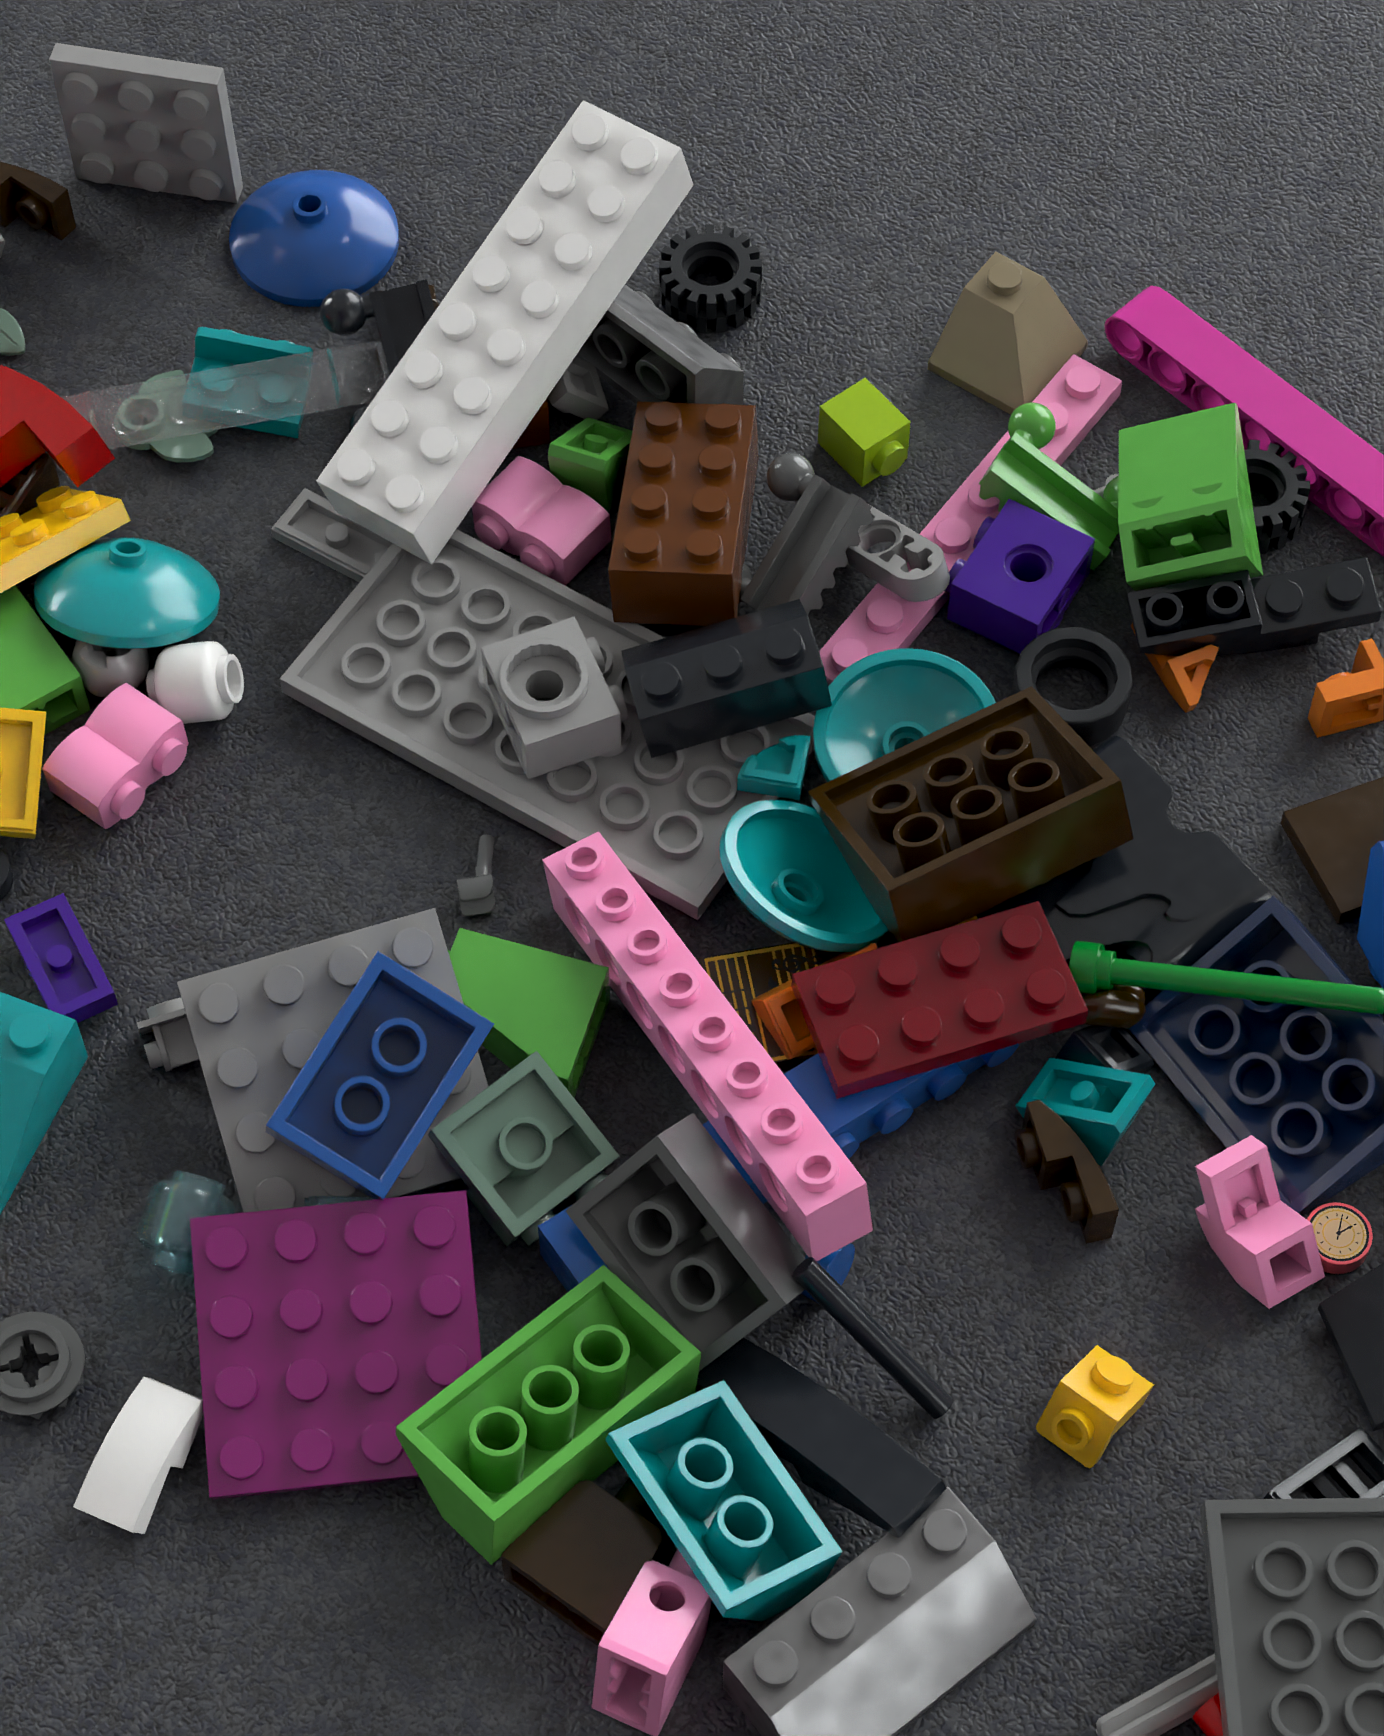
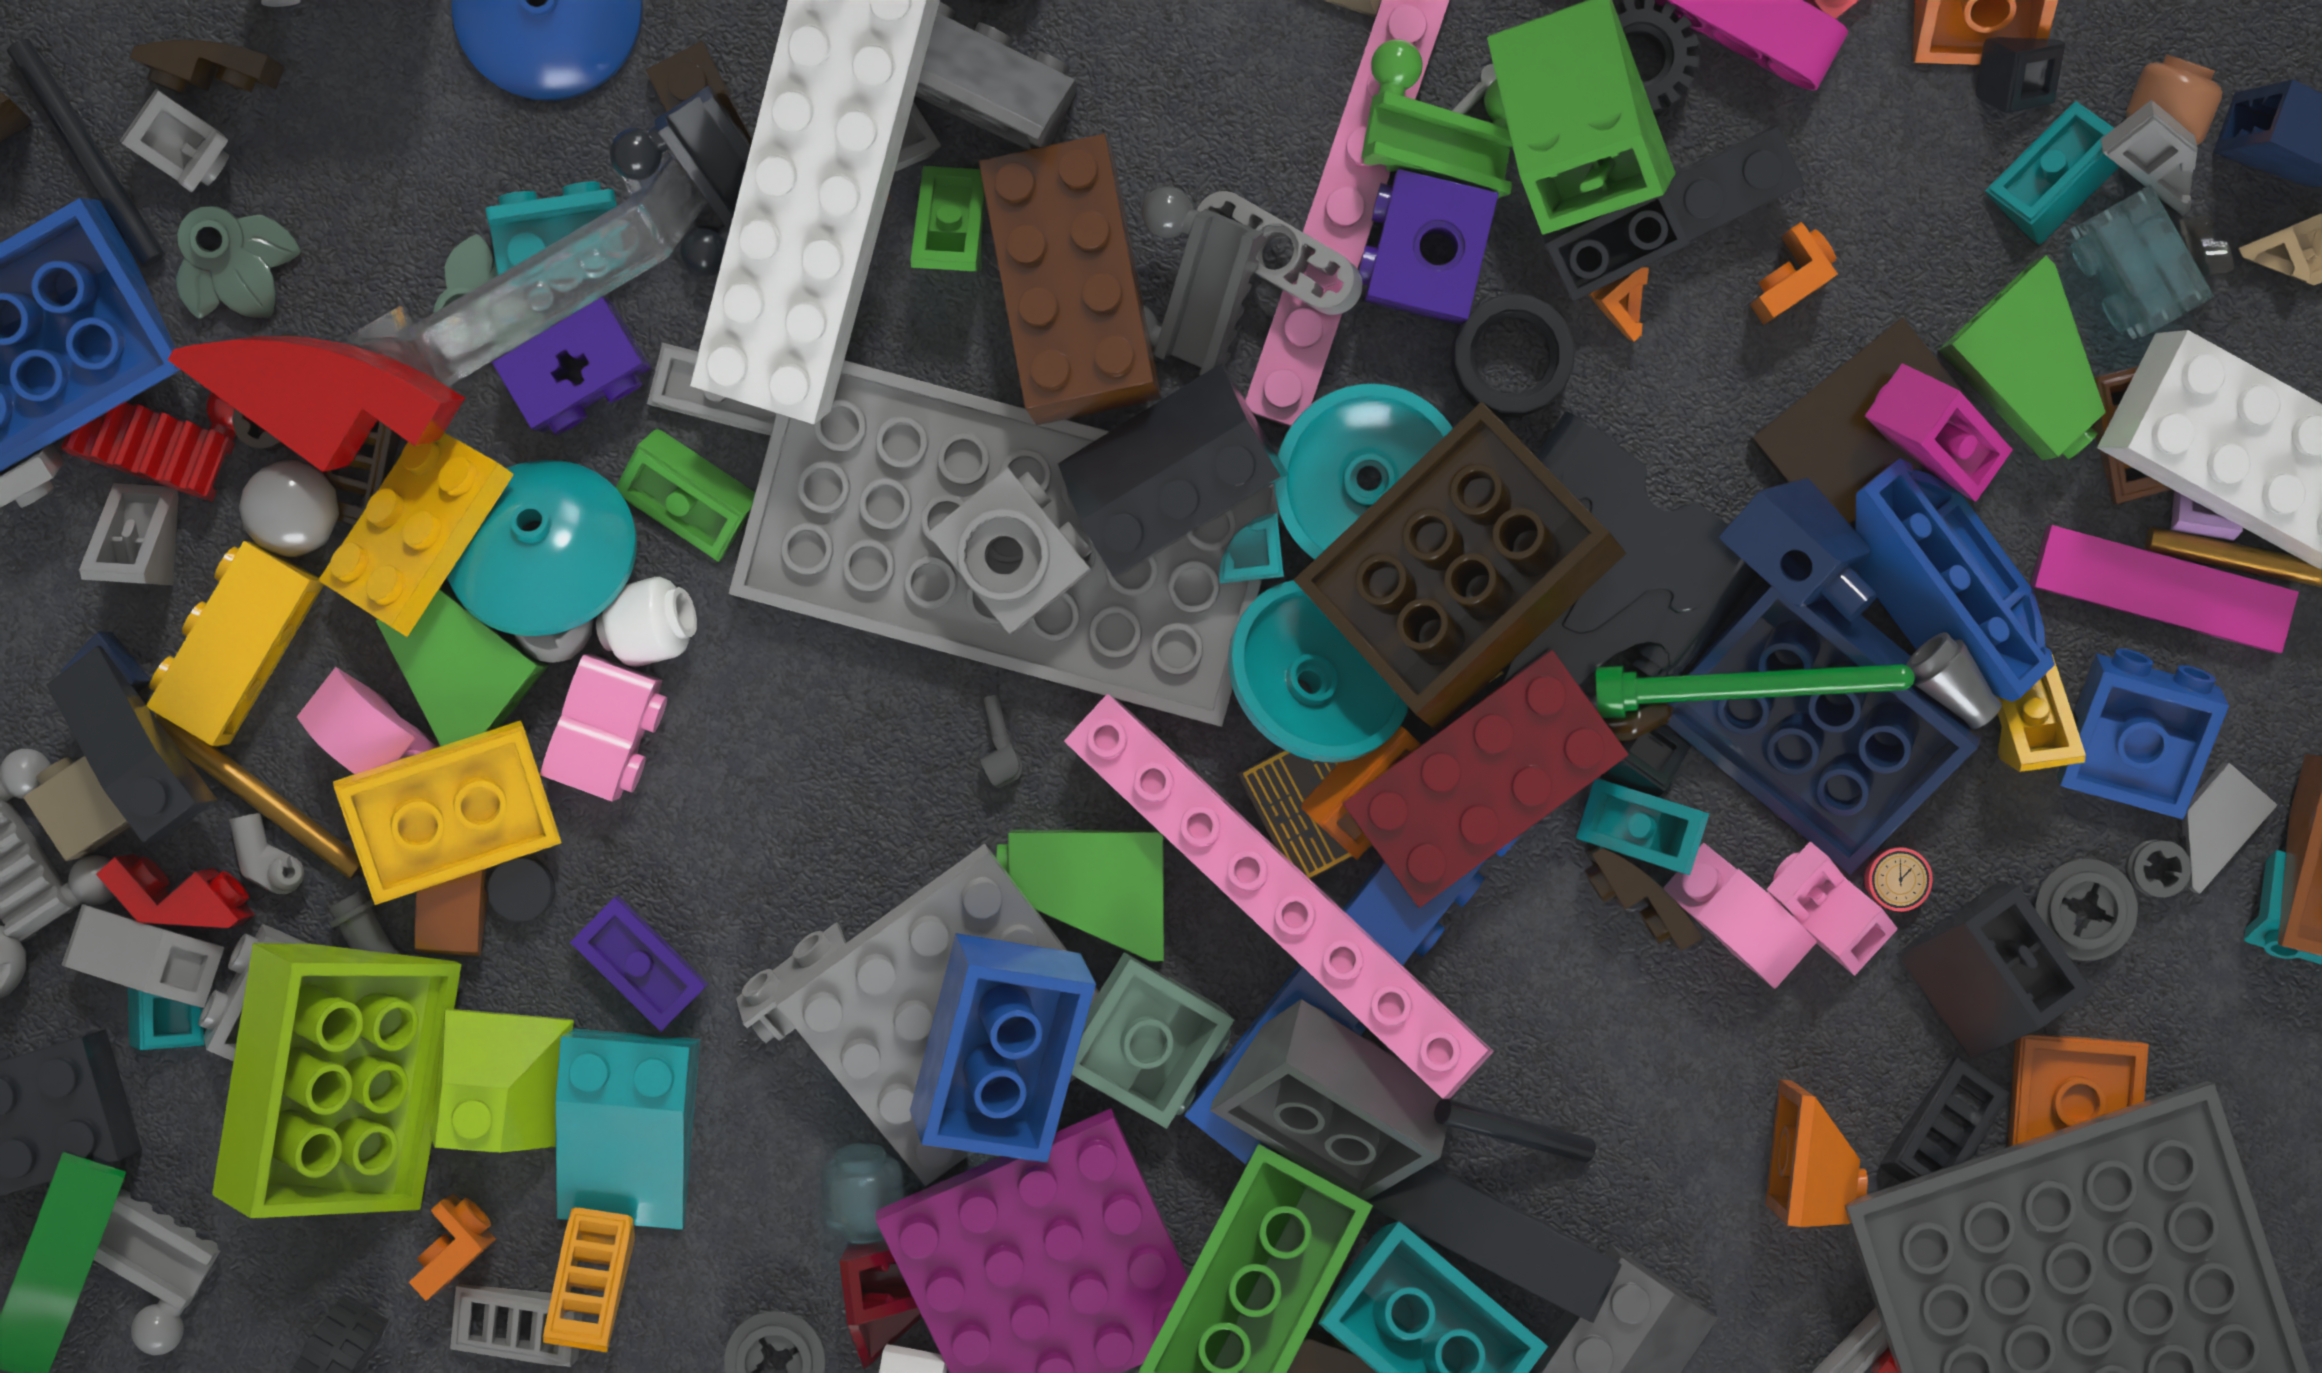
camera: 20 degrees left, 30 degrees up
(157, 1324) = (875, 1299): none -> dark red slope
(218, 476) = (537, 367): none -> dark purple brick
(271, 604) = (686, 493): none -> bright green slope
(541, 520) = (921, 319): bright pink brick -> none
(864, 432) = (1219, 103): lime brick -> none
(1092, 1405) = (1721, 1112): yellow bracket -> none
(1171, 1215) = (1741, 916): none -> bright pink brick
(1179, 1464) = (1810, 1163): none -> orange slope
(1317, 895) = (1802, 547): none -> dark blue torso

